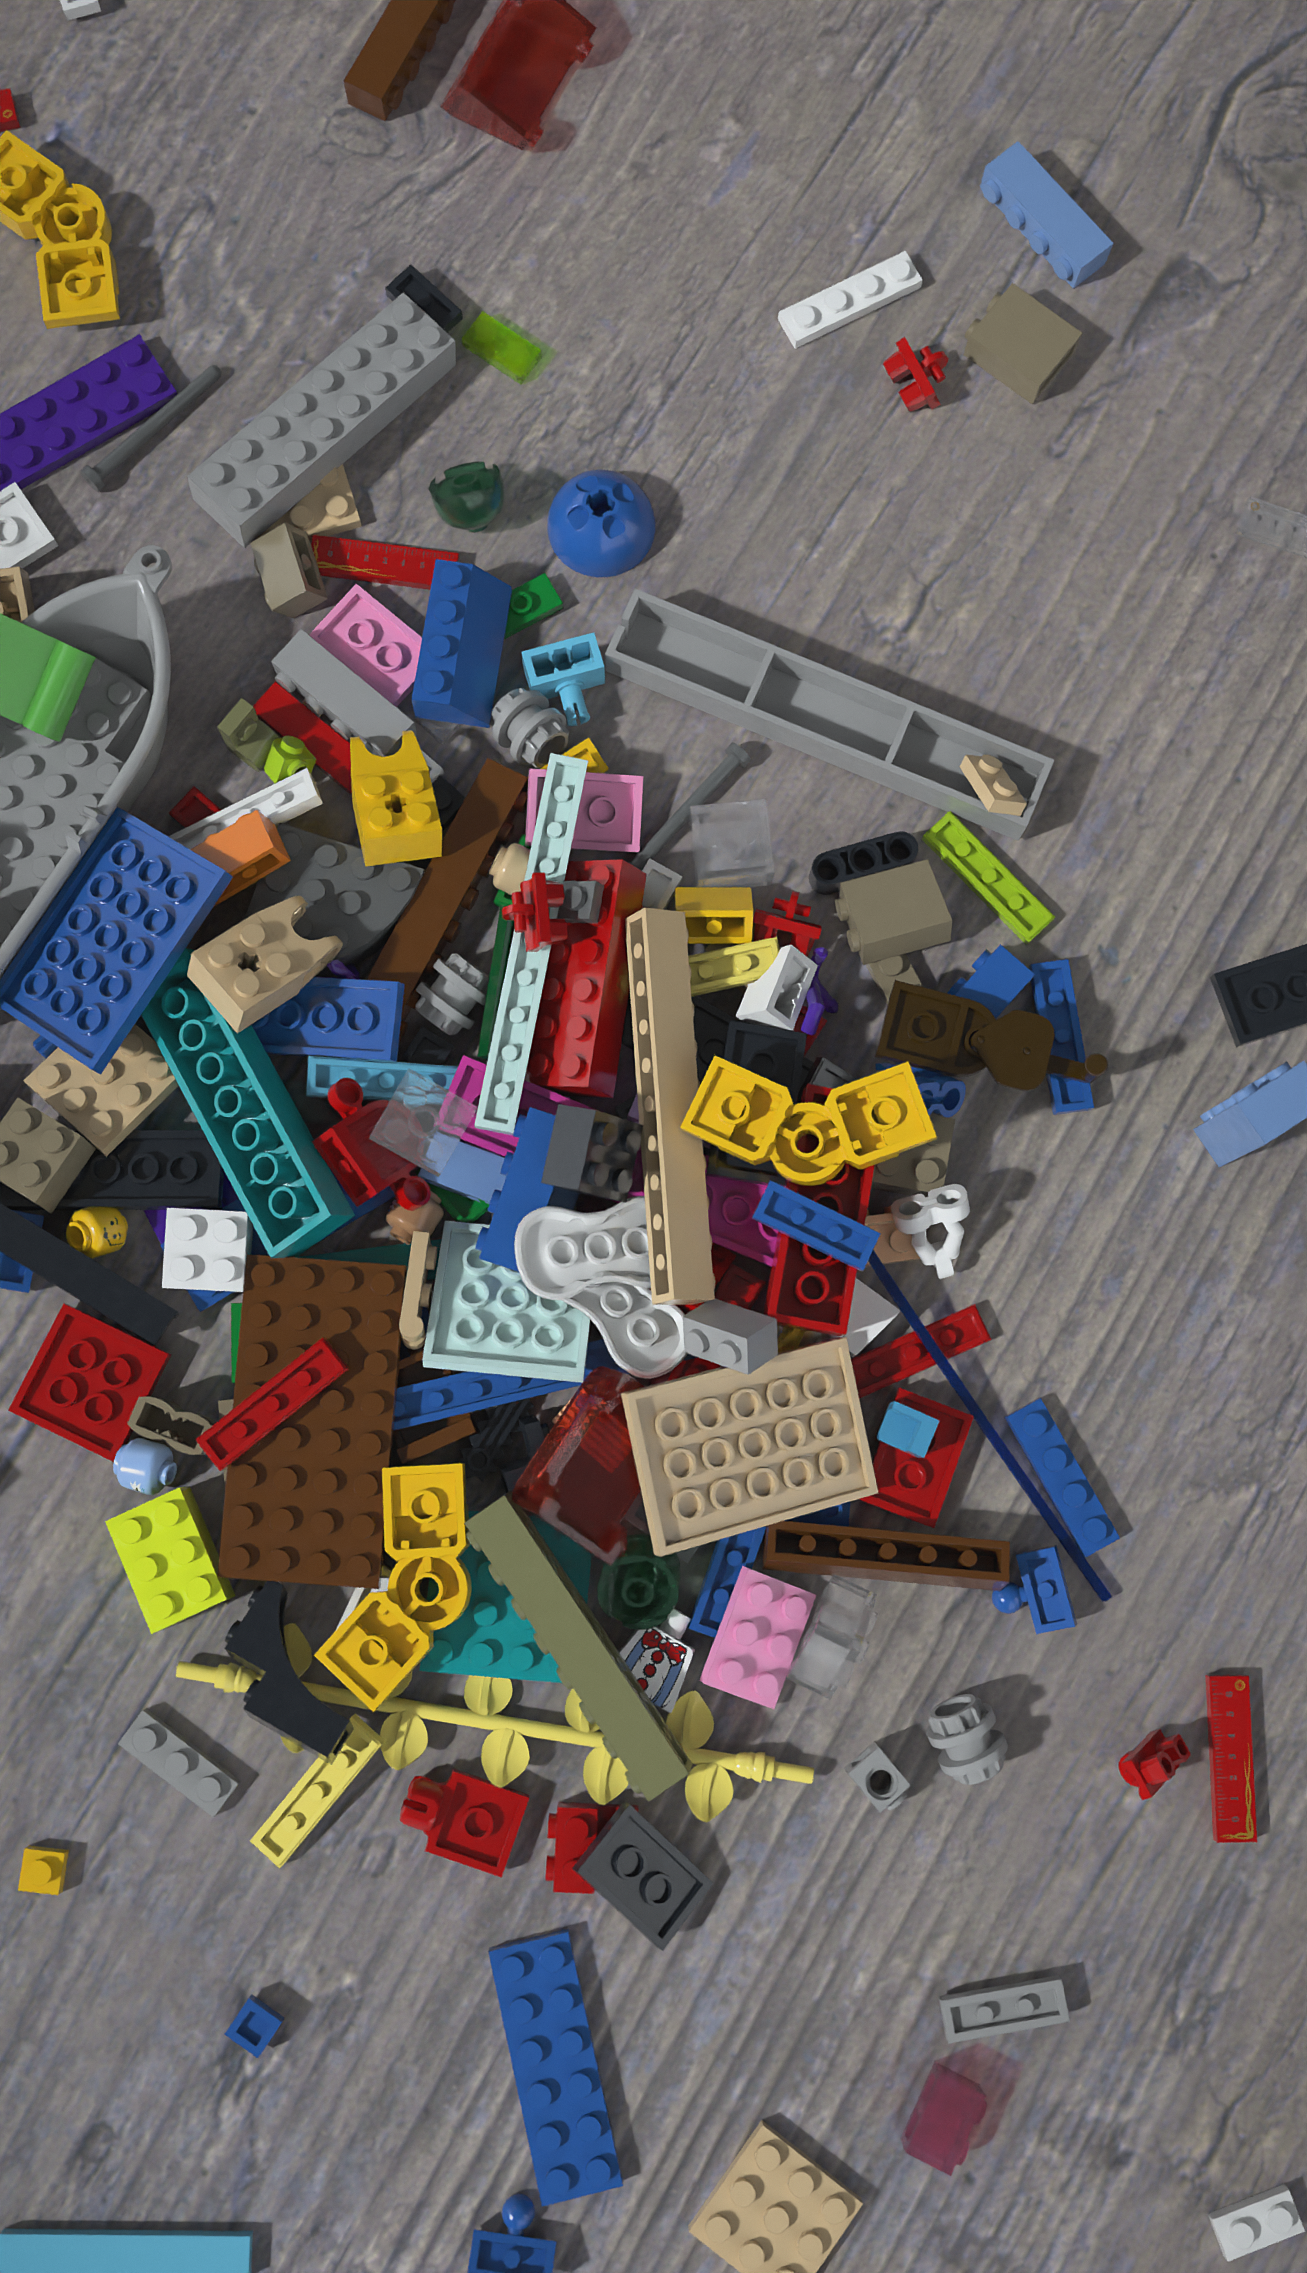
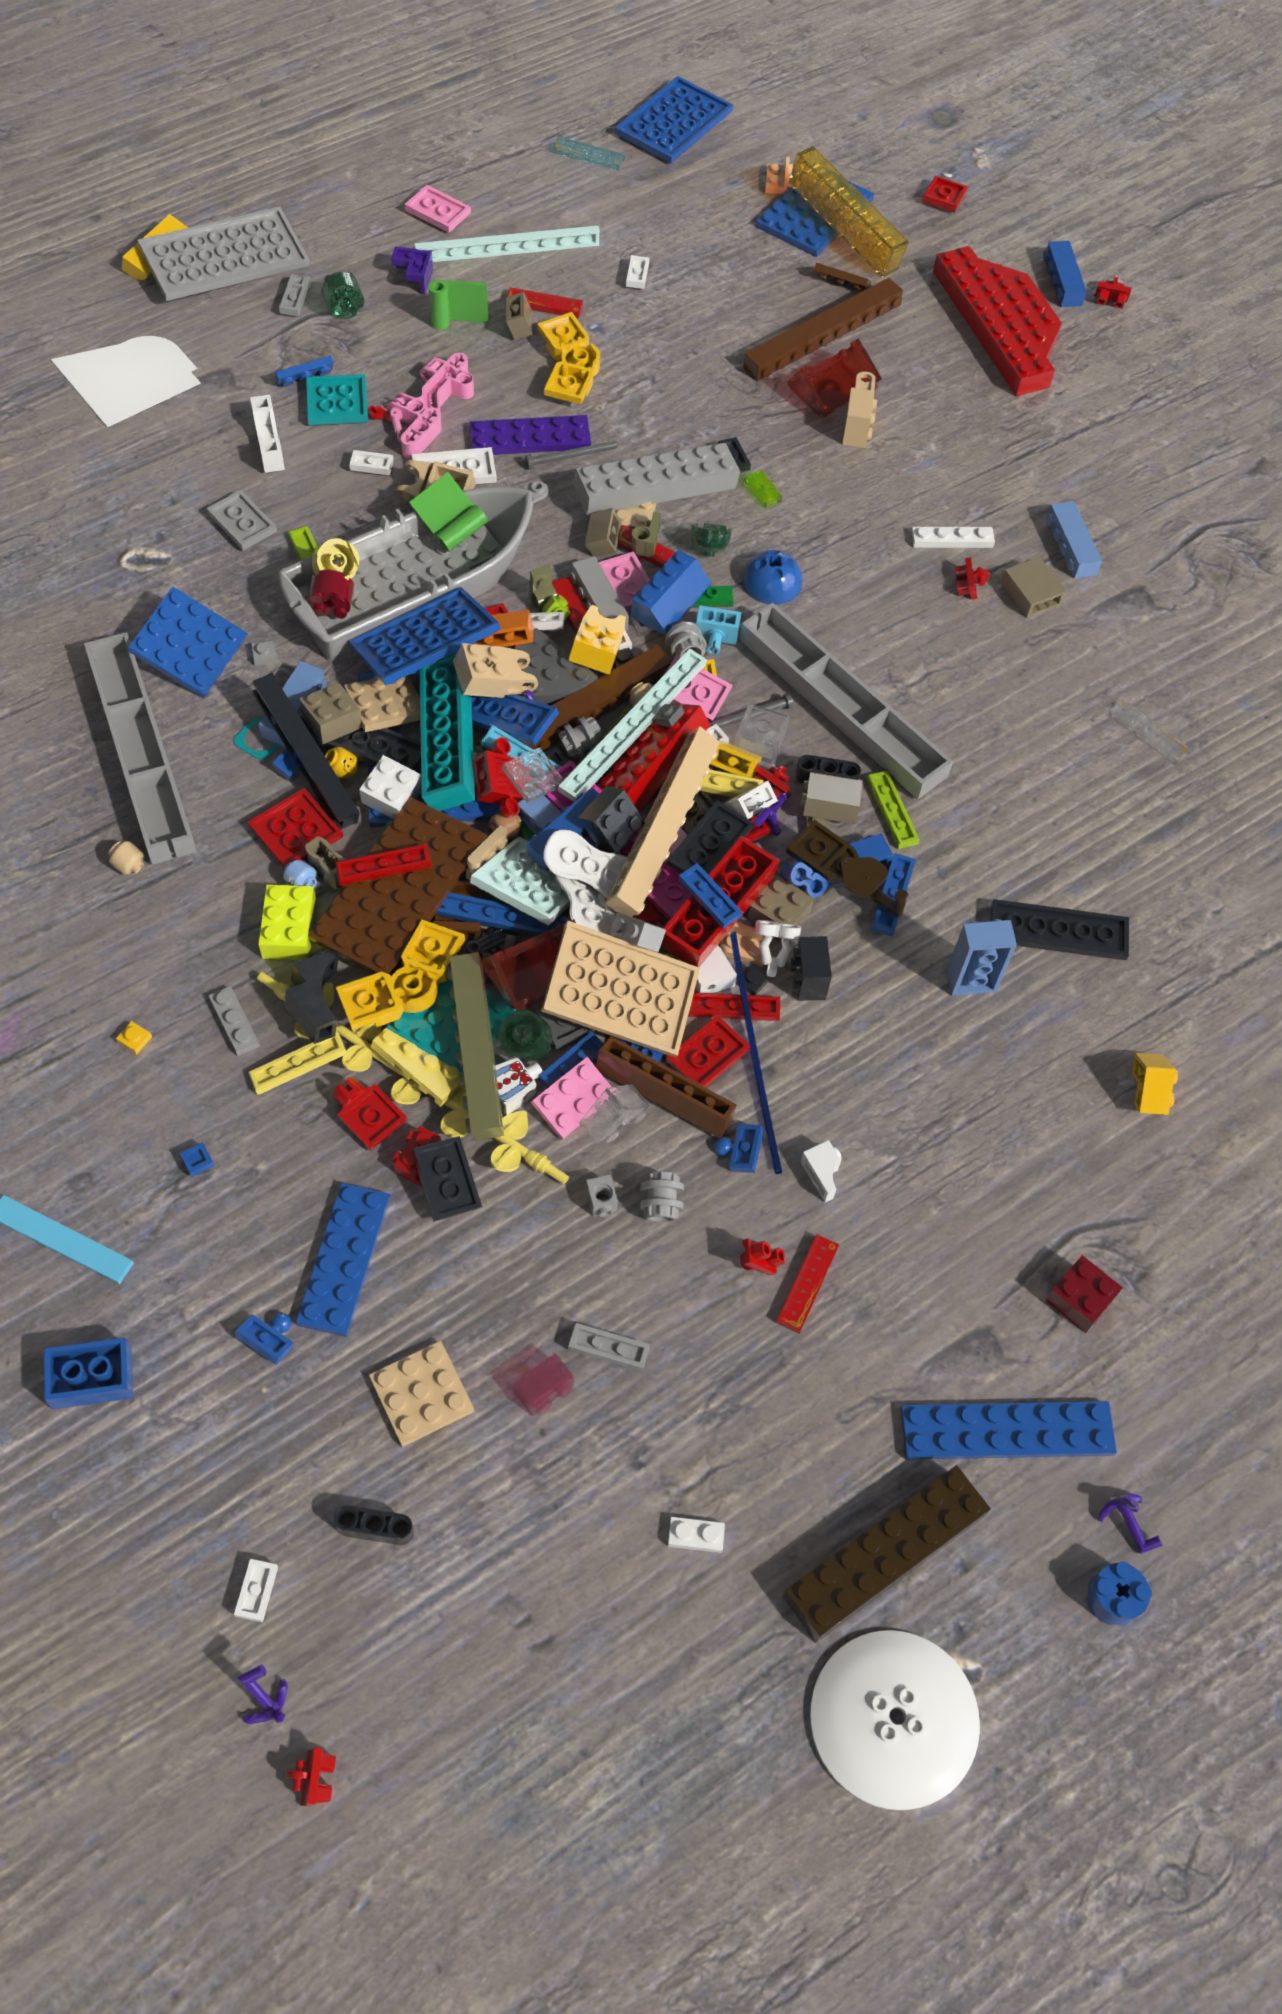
camera: 25 degrees right, 20 degrees down
(366, 543) = (645, 538): none -> olive plate
(511, 1710) = (425, 1069): none -> light yellow wing
(531, 912) = (641, 704): red hips -> none
(593, 116) = (859, 412): none -> tan brick
(857, 1125) = (726, 857): yellow plate -> none
(907, 1429) = (711, 1031): dark azure panel -> none
(921, 1291) = (754, 979): none -> black plate
(993, 784) = (915, 760): tan plate -> none
(1006, 1242) = (811, 968): none -> black brick
(1062, 1477) = (784, 1102): blue plate -> none
(1168, 1562) = (820, 1165): none -> white arch

